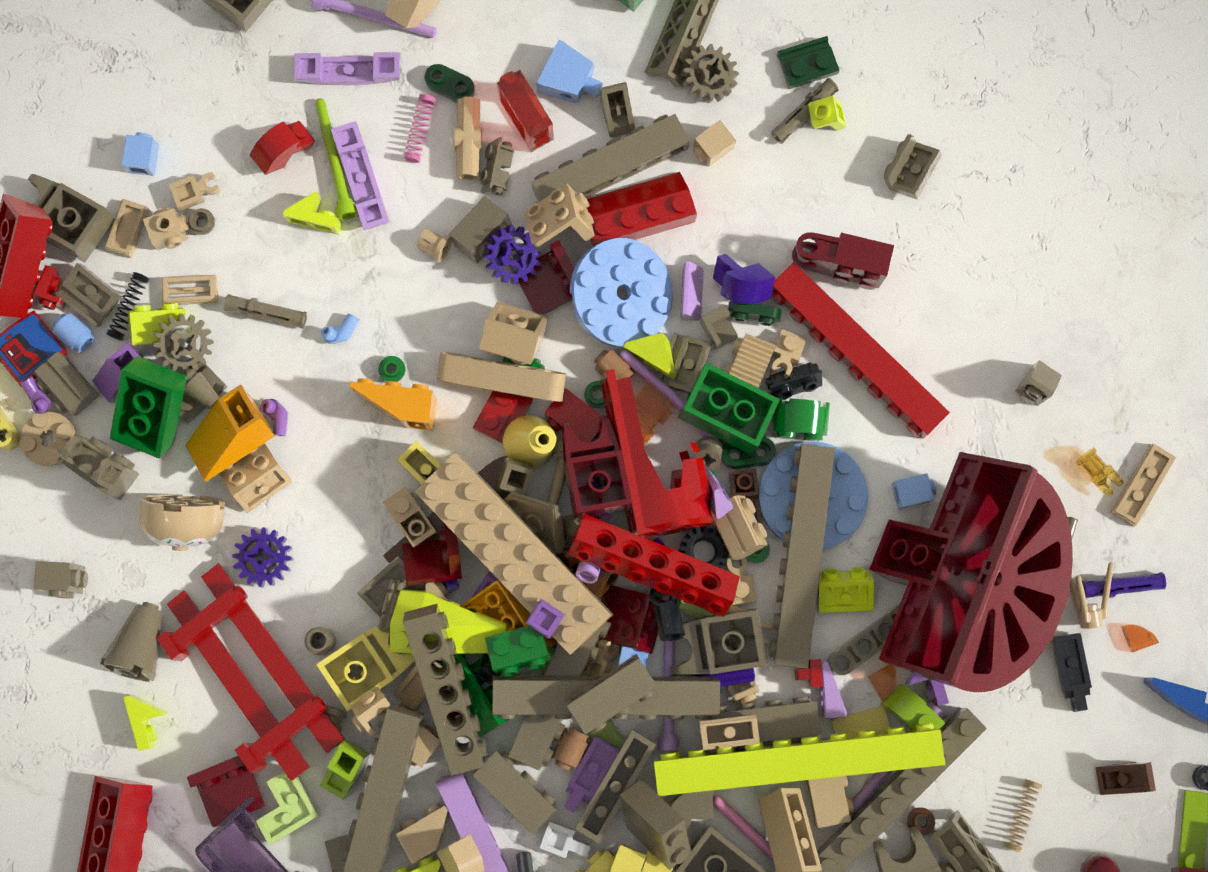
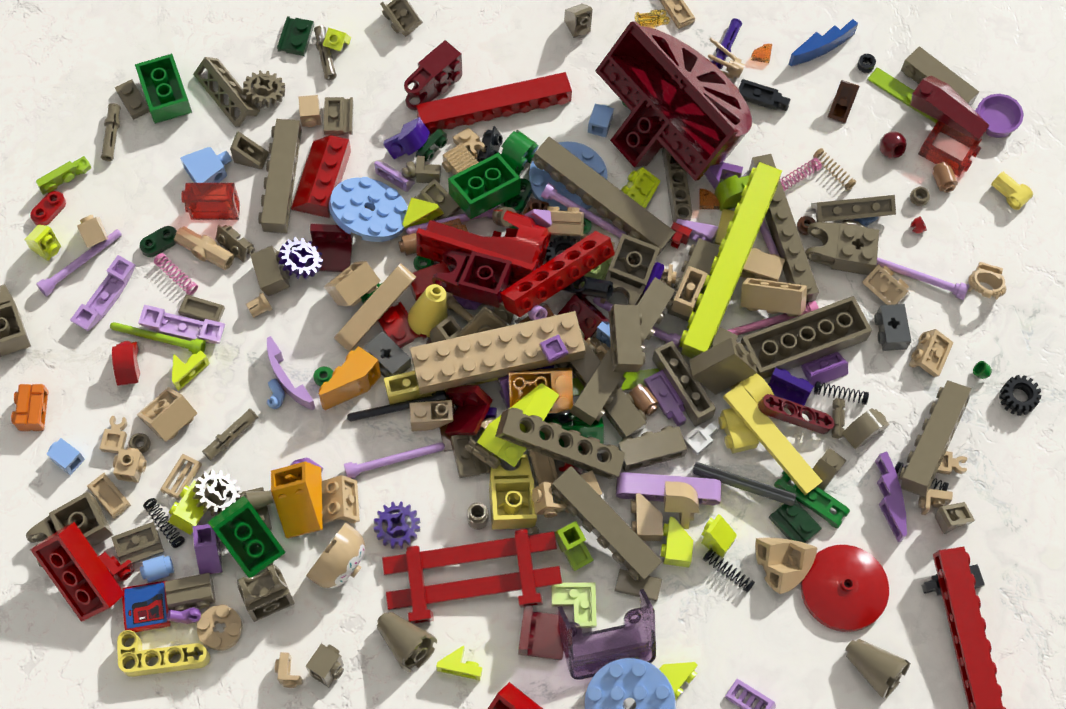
camera: 60 degrees left, 15 degrees down
(39, 534) = (283, 668): none -> tan bracket
(173, 81) = (30, 407): none -> orange brick
(248, 229) = (167, 414): none -> tan slope
(300, 470) = (353, 470): none -> lavender piece
(383, 298) = (298, 394): none -> lavender slope
(394, 184) = (201, 309): none -> dark tan tile
(397, 469) = (438, 396): none -> black piece
(465, 413) = (384, 346): none -> dark grey brick
(517, 650) = (563, 382): green bracket -> none
(557, 213) = (294, 214): tan bracket -> none
(702, 308) = (409, 170): none -> dark tan arm
(729, 179) = (338, 116): none -> dark tan plate
(771, 491) = (551, 193): none -> lavender piece
(1014, 790) = (812, 162): none -> bright pink piece

